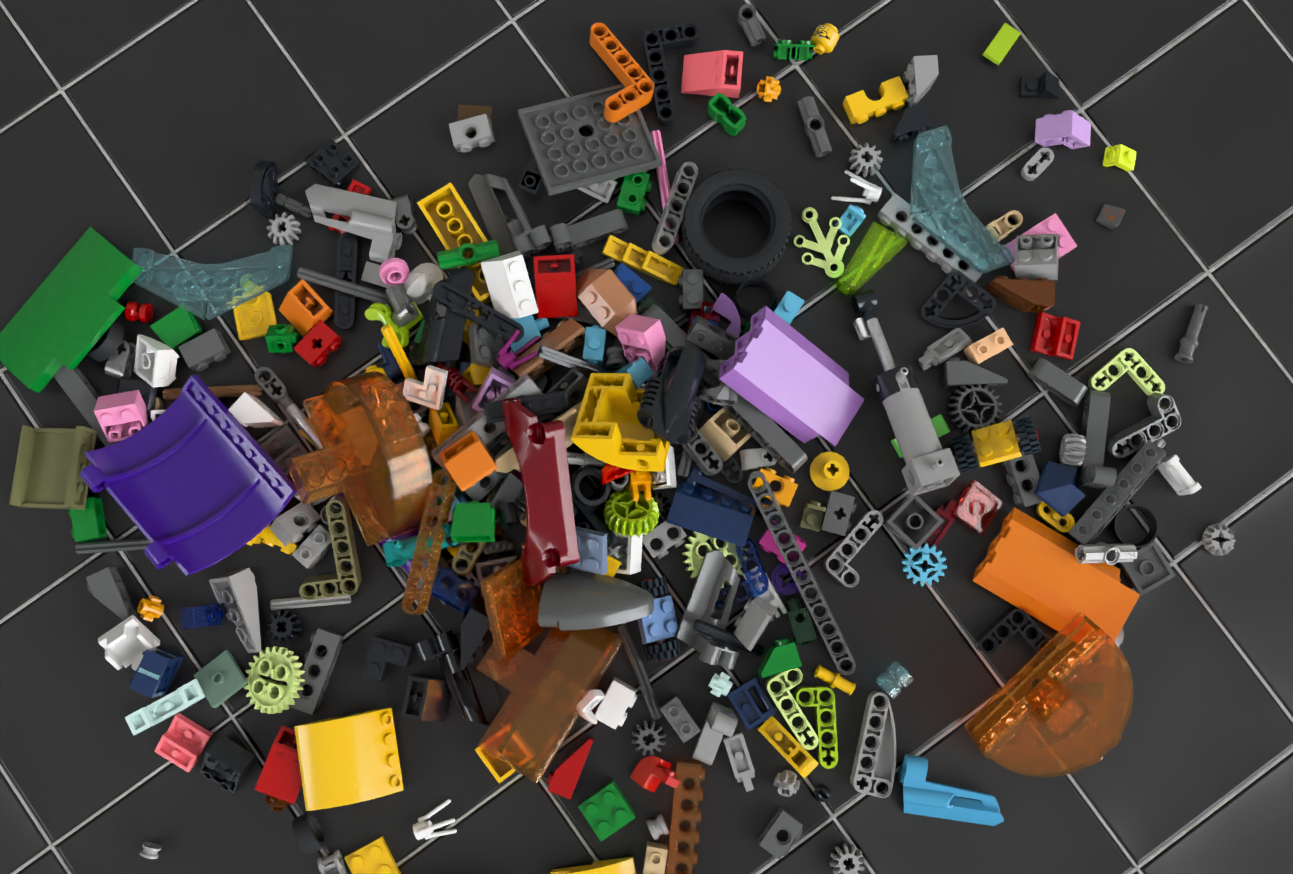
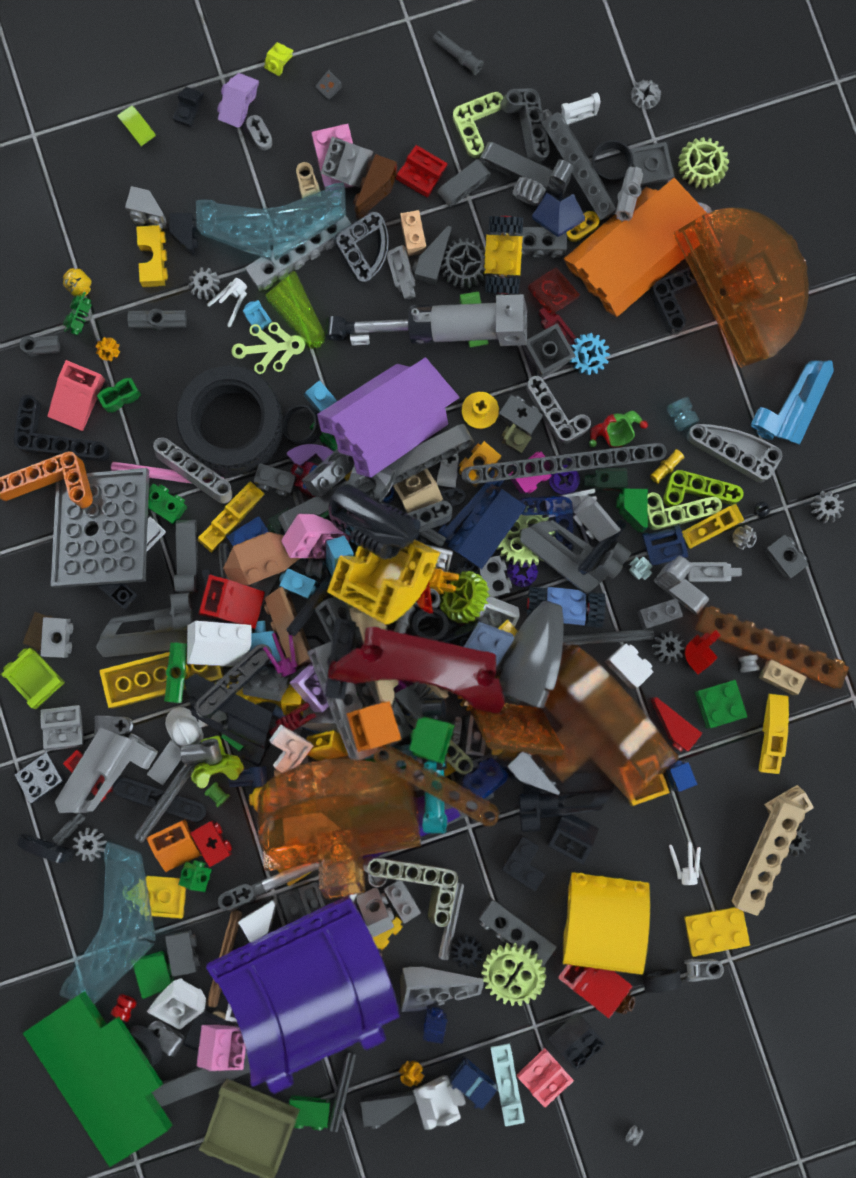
camera: 80 degrees left, 0 degrees up
(220, 679) = (497, 1025): sand green plate -> none
(366, 334) = (217, 794): none -> bright green bush
(388, 168) = (62, 728): none -> light grey slope
(394, 271) = (167, 748): bright pink plate -> none
(398, 352) = (247, 766): yellow axle -> none
(427, 124) = (32, 677): none -> lime panel
(519, 790) = (680, 776): none -> blue brick
(588, 702) = (632, 692): white plate -> none
(669, 565) = (521, 580): none -> dark purple gear
(856, 616) = (617, 429): none -> bright green piece
(1177, 610) = (695, 149): none -> yellowish green gear

